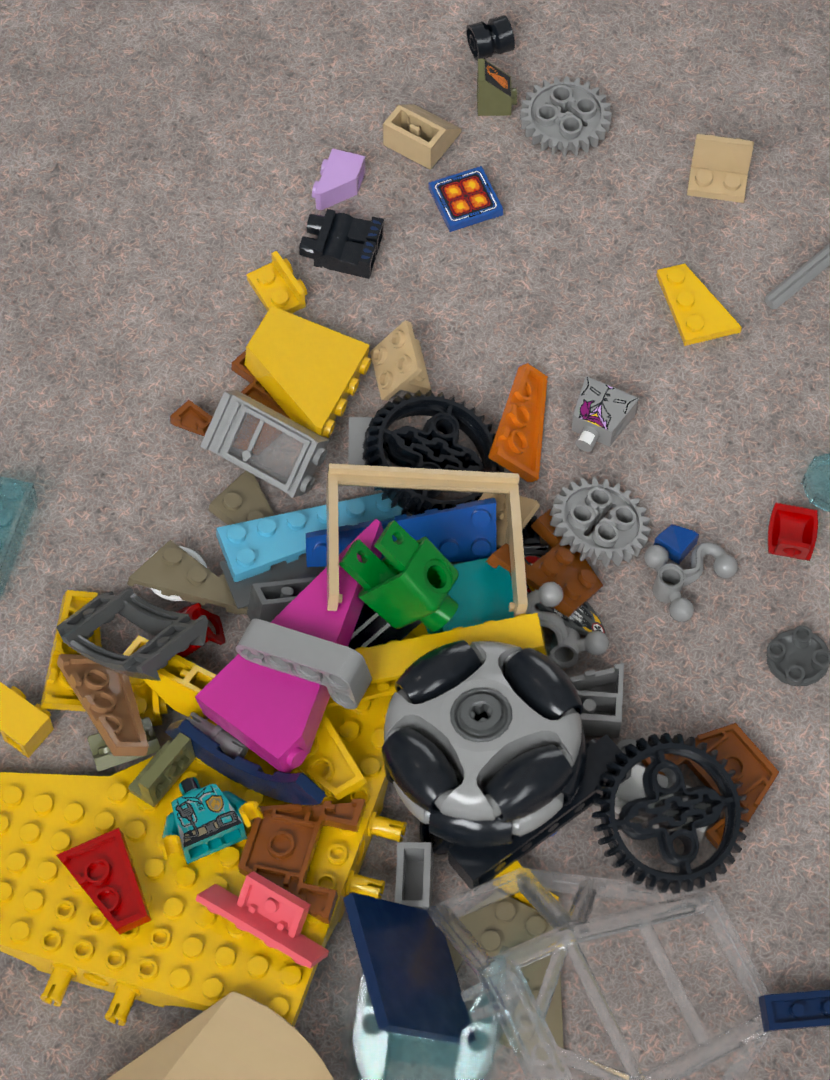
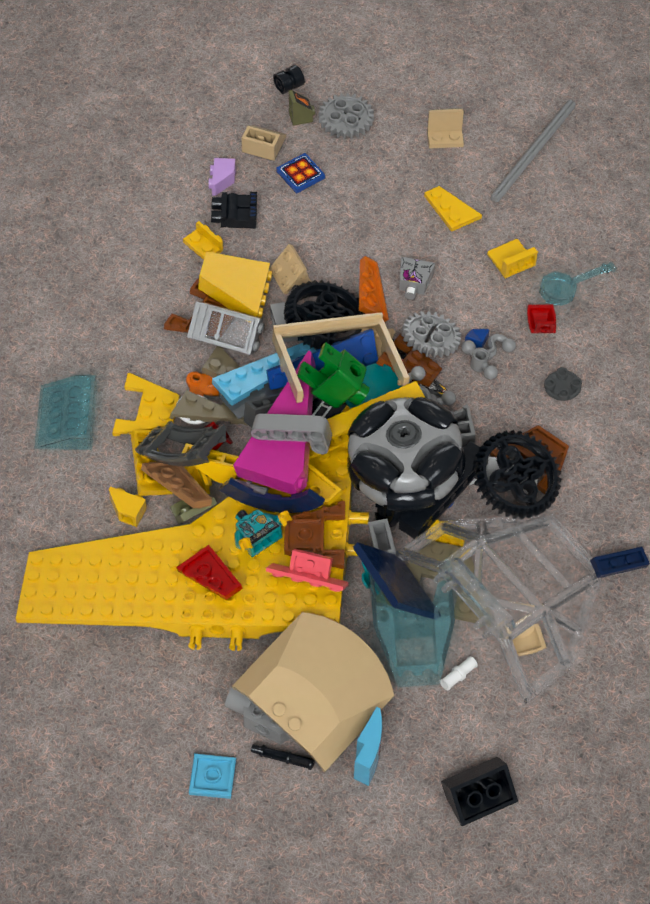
camera: 15 degrees left, 5 degrees down
(115, 556) = (153, 409): none -> yellow wing
(163, 770) = (223, 510): olive bracket -> none
(200, 535) = (202, 385): none -> orange plate
(772, 413) = (513, 258): none -> yellow bracket

